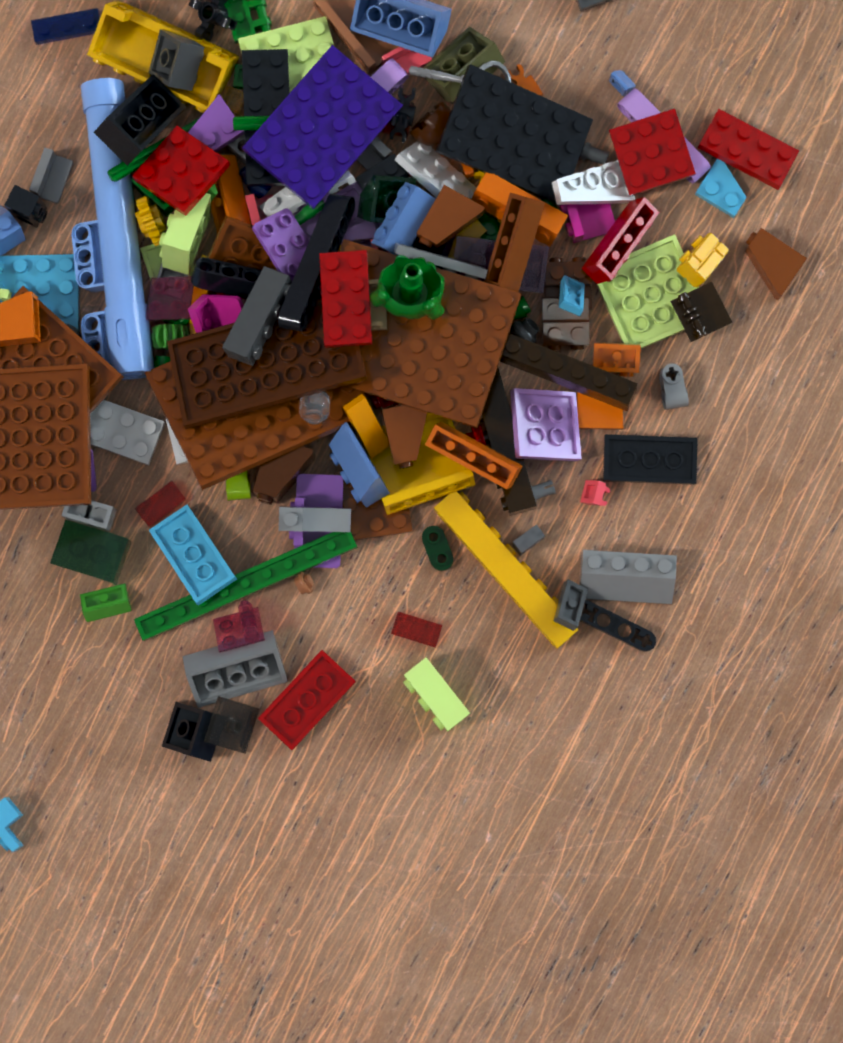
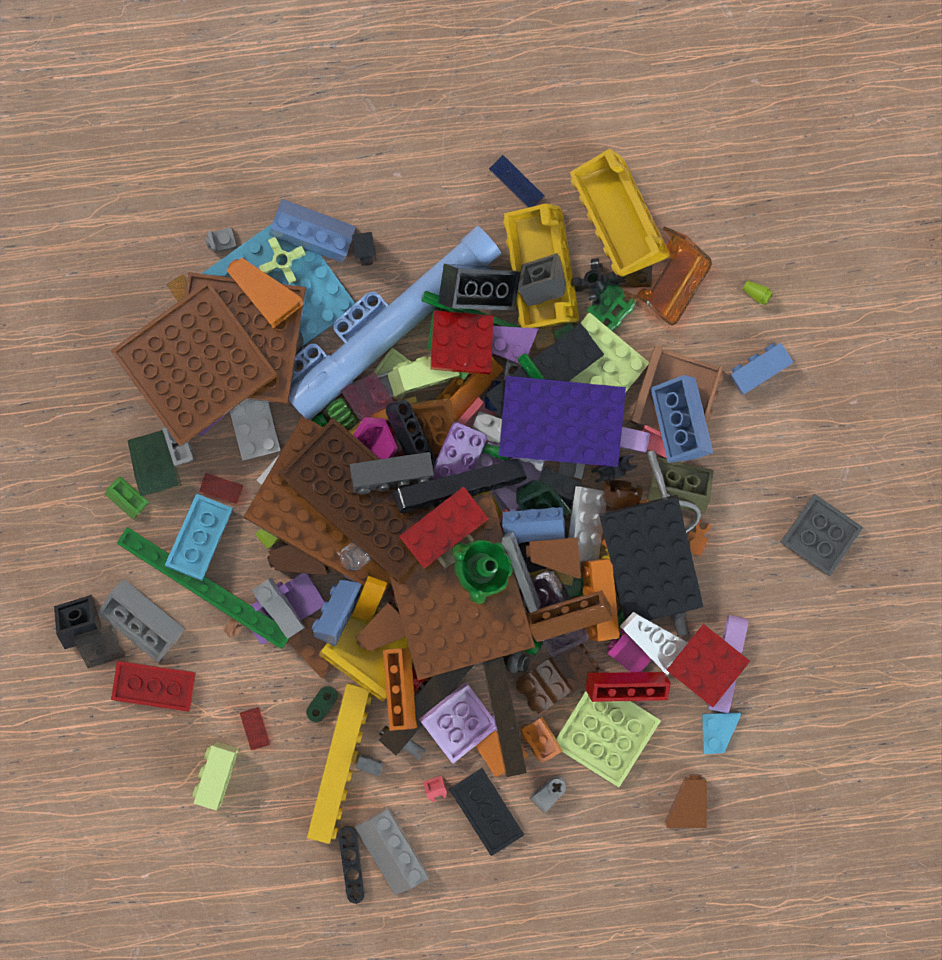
camera: 55 degrees right, 5 degrees up
(51, 176) = (400, 248): light grey panel -> none
(150, 220) = (414, 343): yellow gear -> none
(239, 628) = (169, 605): clear pink hinge -> none
(570, 605) = (342, 827): dark grey plate -> none
(571, 295) = (562, 680): medium azure plate -> none
(621, 82) = (747, 607): medium blue slope -> none
(701, 311) = (616, 777): dark brown hinge -> none
(702, 259) = (654, 753): yellow brick -> none
(748, 149) = (760, 731): red plate -> none

